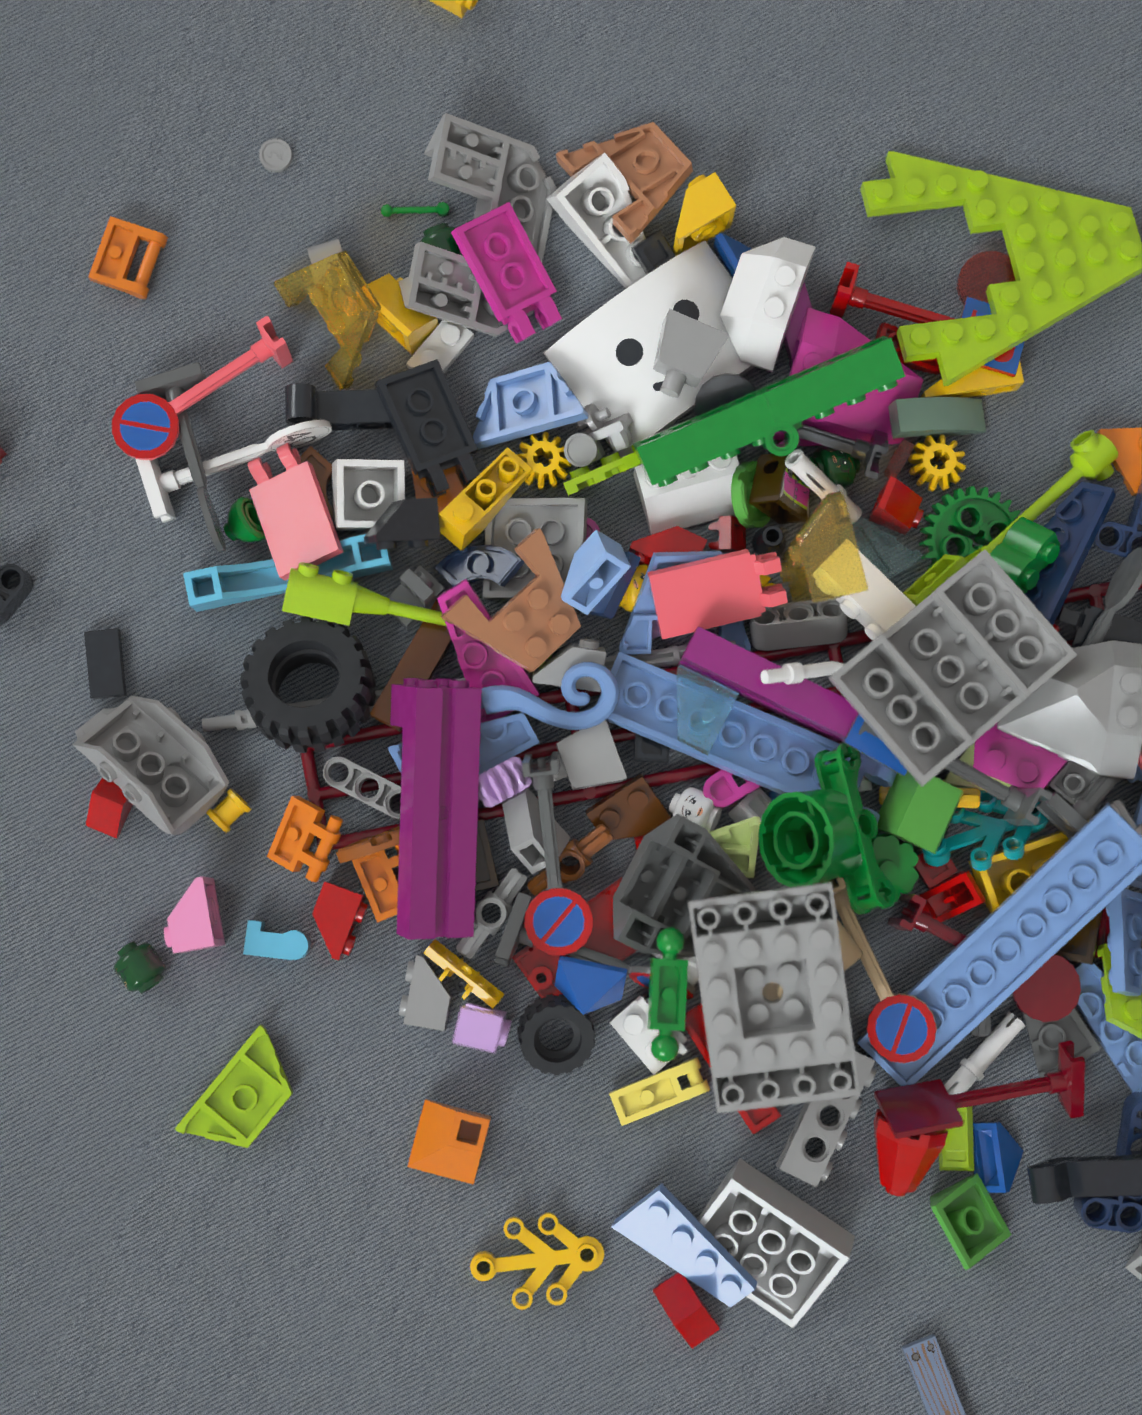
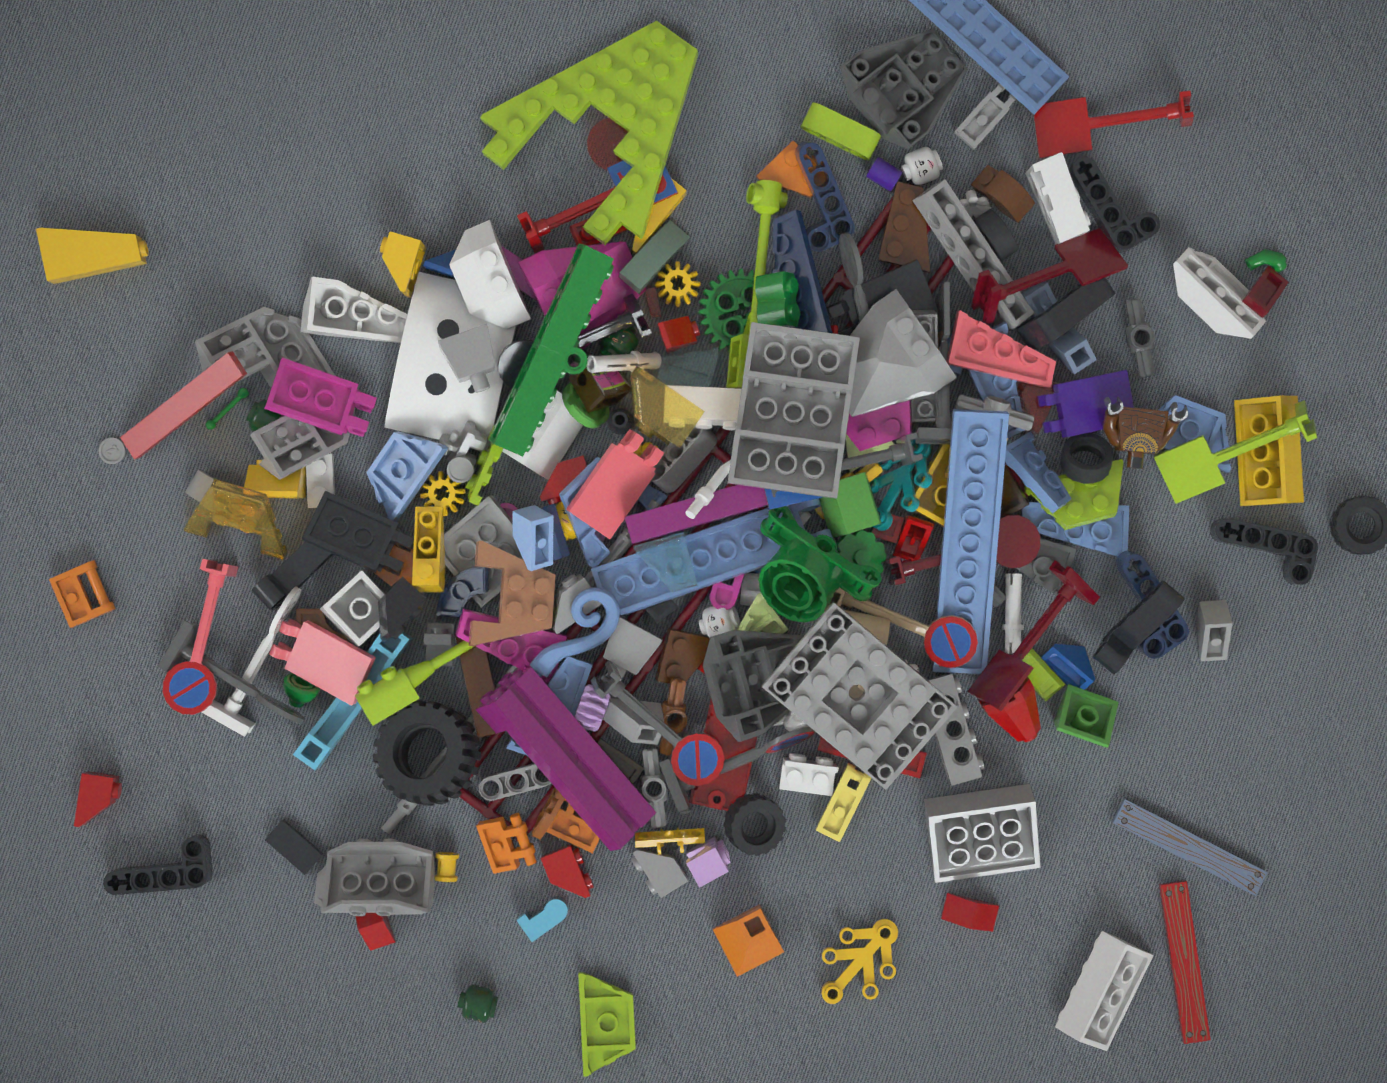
camera: 35 degrees left, 5 degrees up
(195, 919) = (486, 947): bright pink slope -> none
(380, 164) = (183, 405): none -> tile
(589, 983) = (748, 778): blue slope -> none
(648, 163) = (341, 257): nougat wing -> none
(653, 252) = (395, 308): black tile -> none
(667, 994) = (797, 746): green plate -> none
(679, 1240) = (931, 877): wing -> none
(731, 534) = (594, 438): red tile -> none

